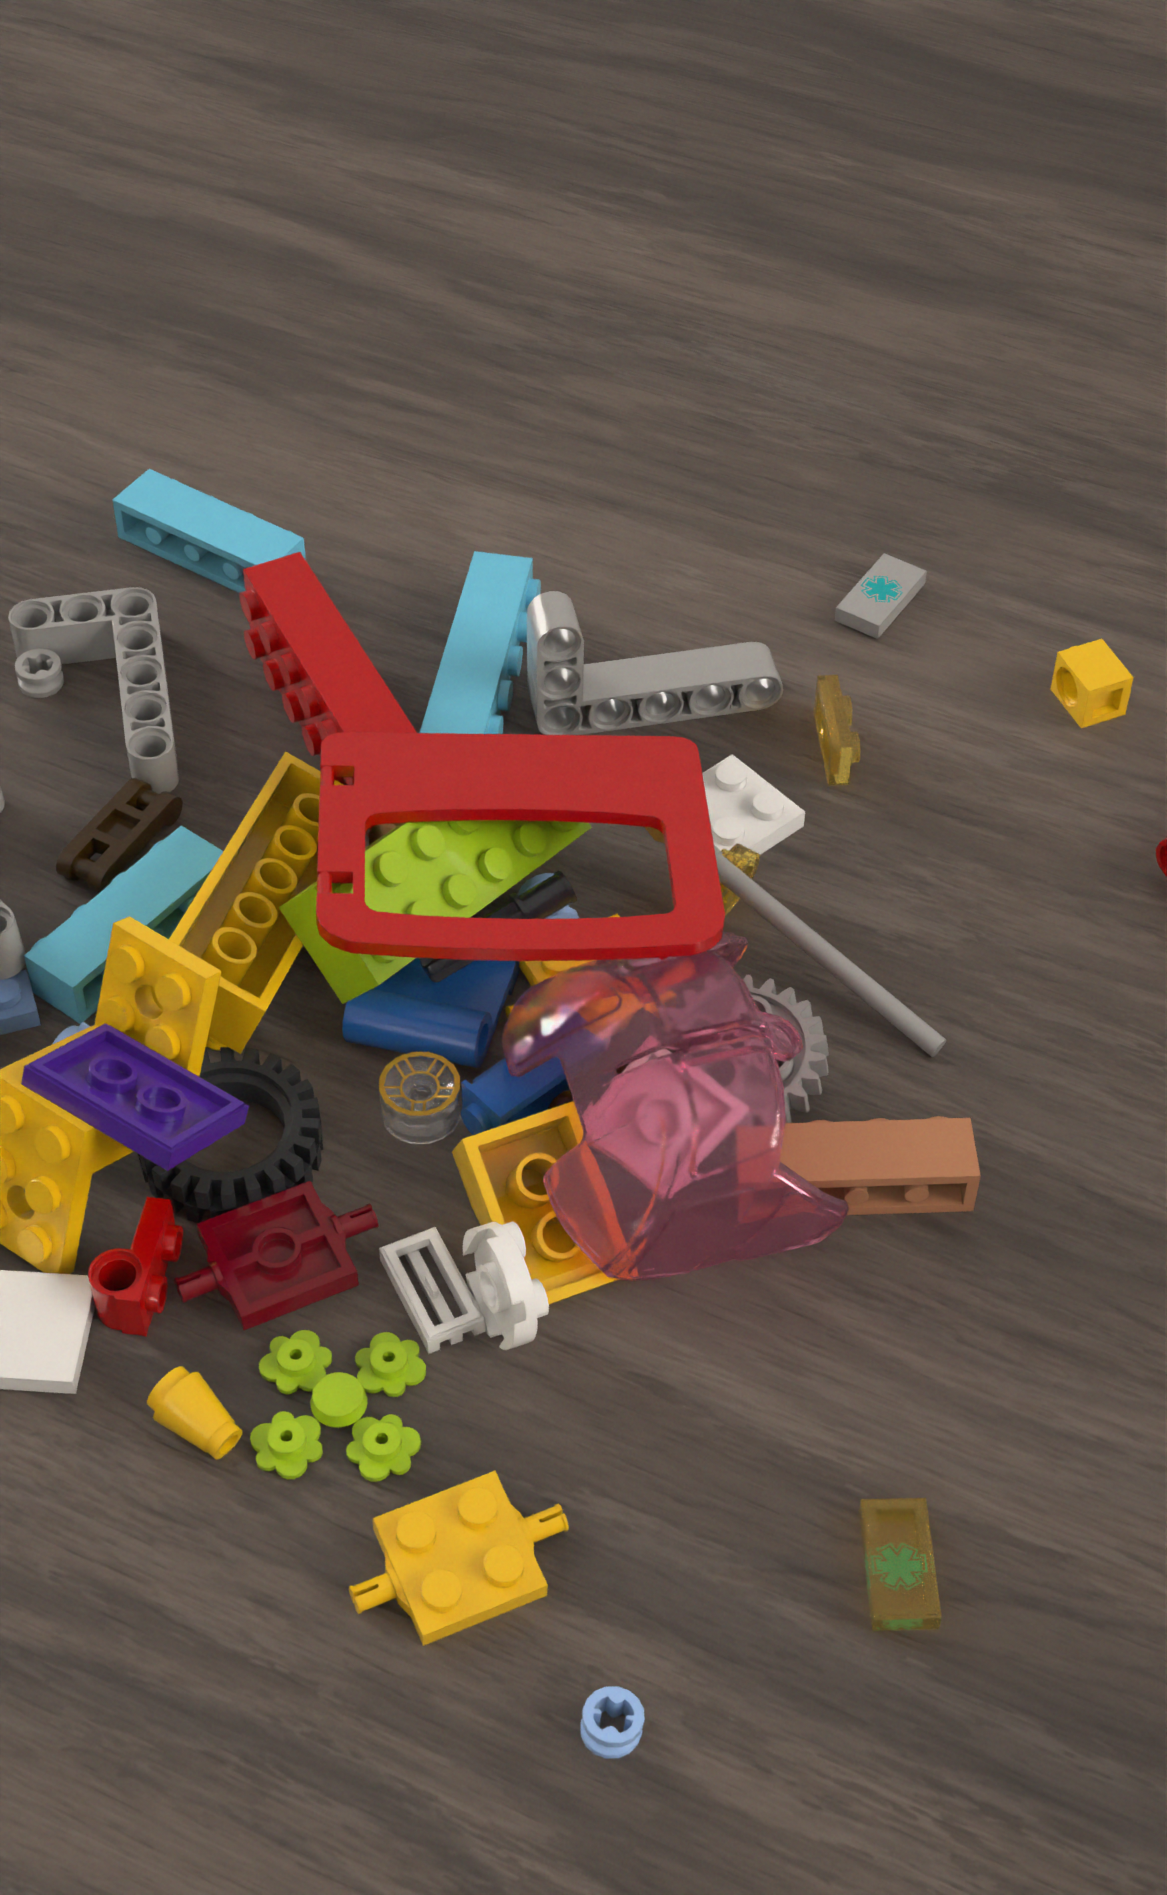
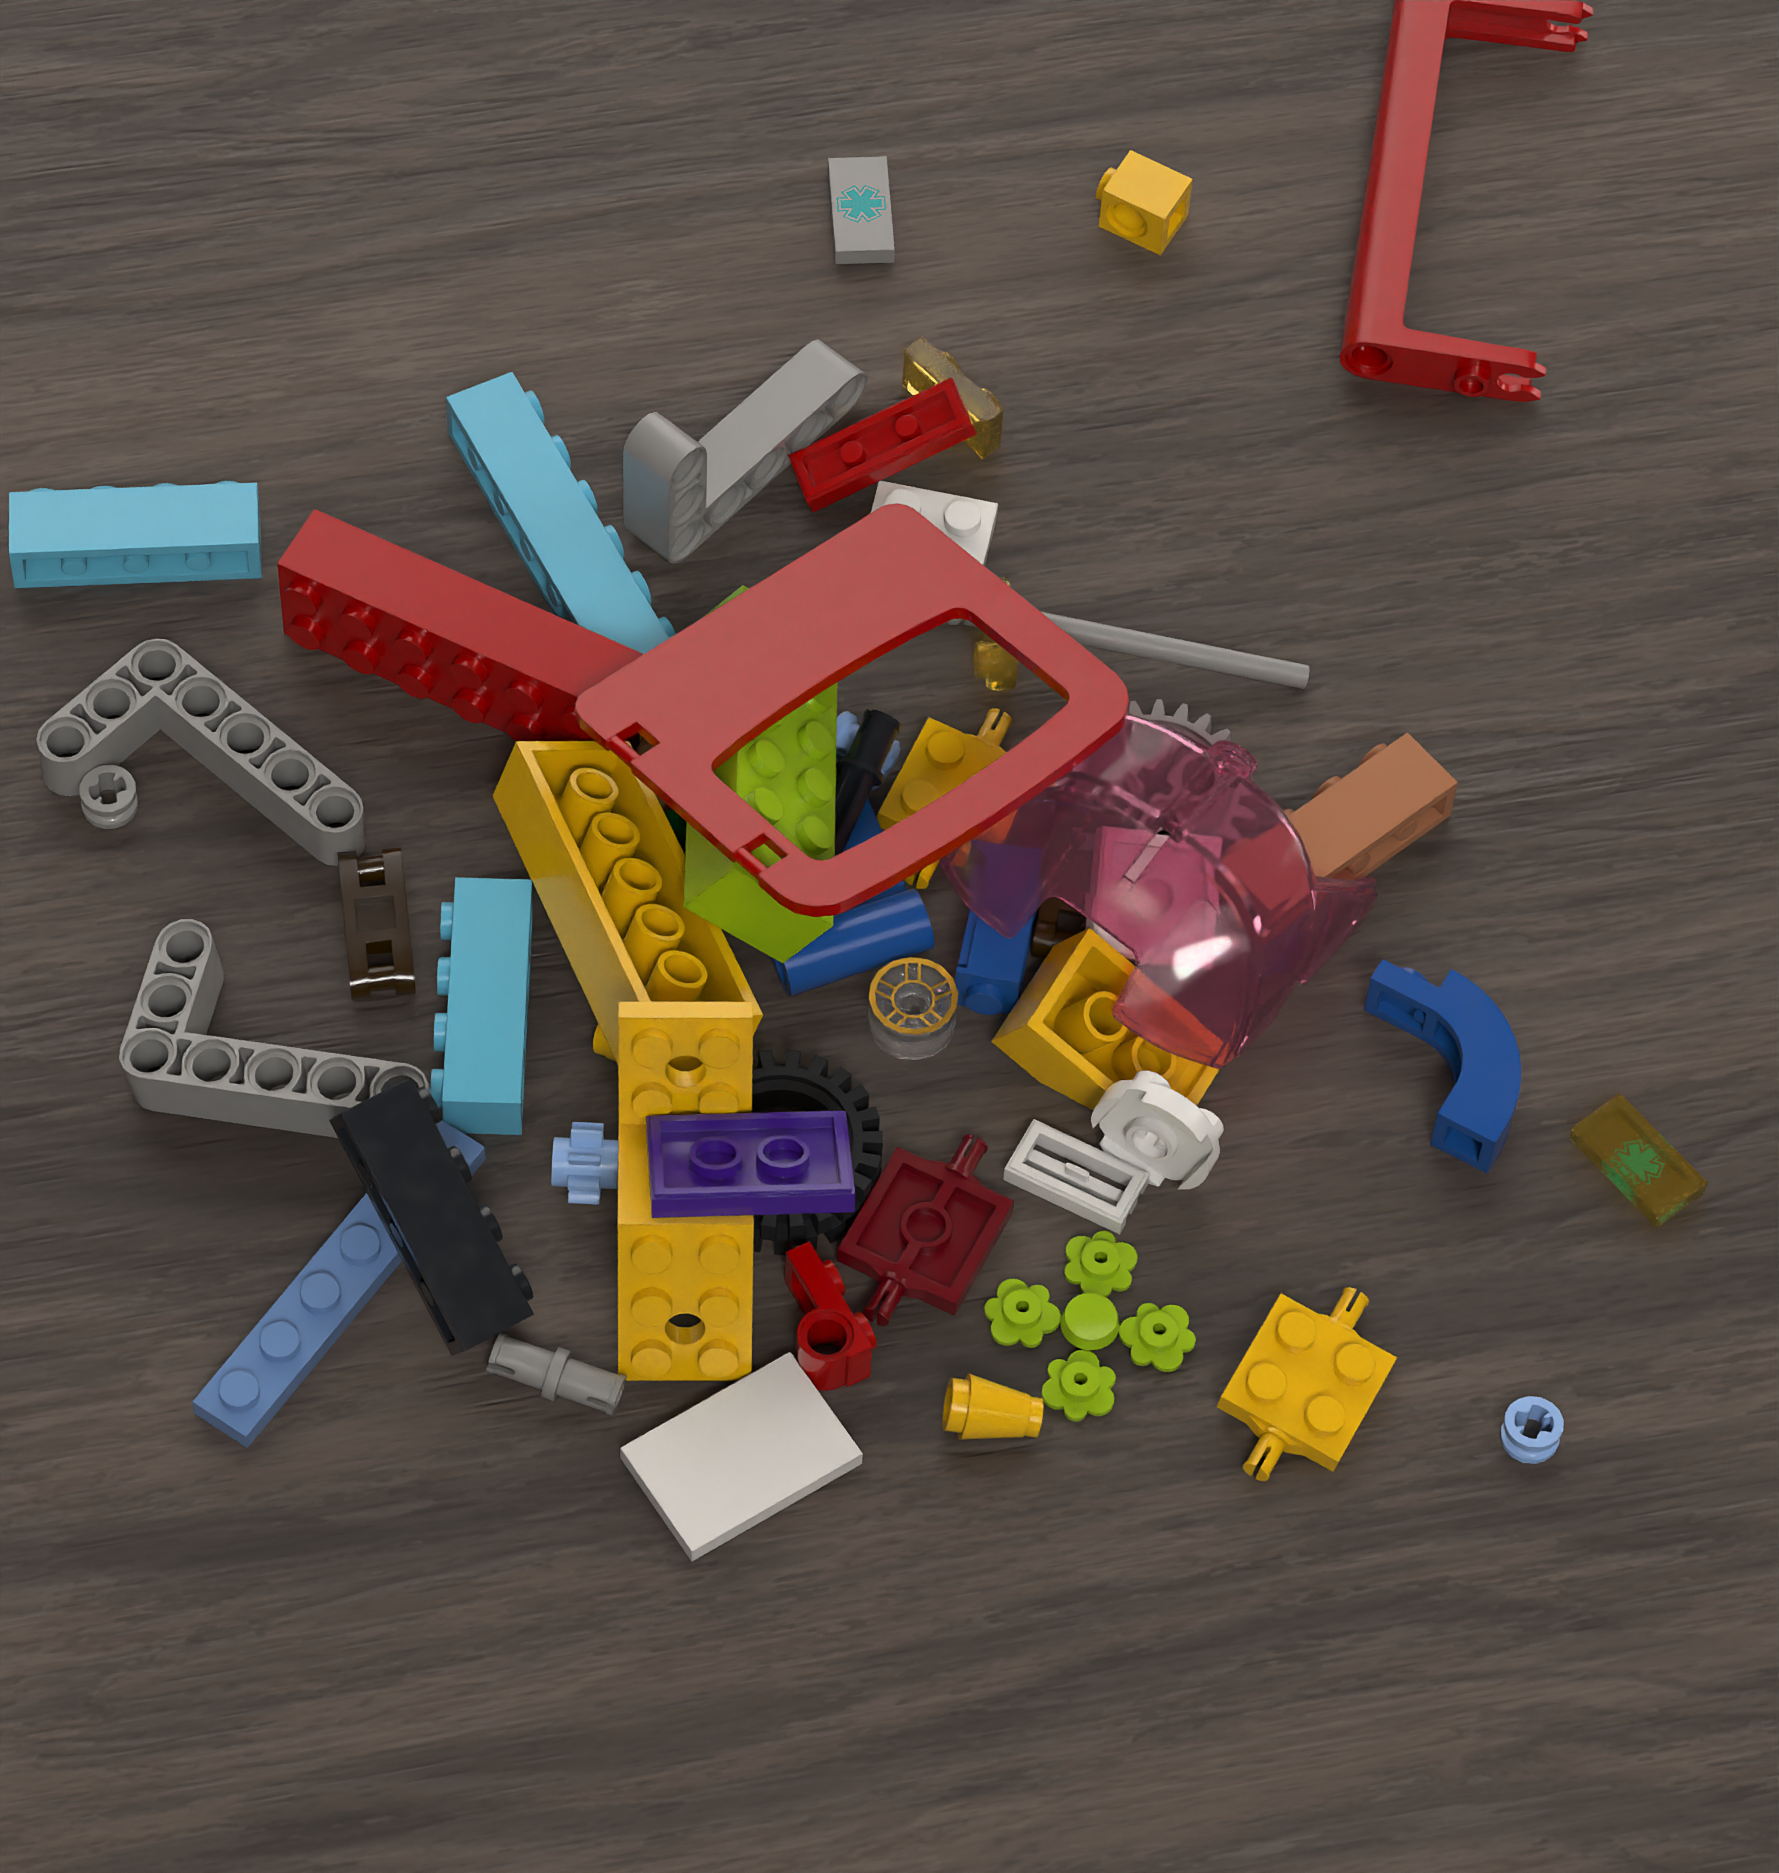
camera: 40 degrees left, 10 degrees up
(756, 728) = (882, 444): none -> red tile
(810, 1421) = (1476, 1046): none -> blue arch

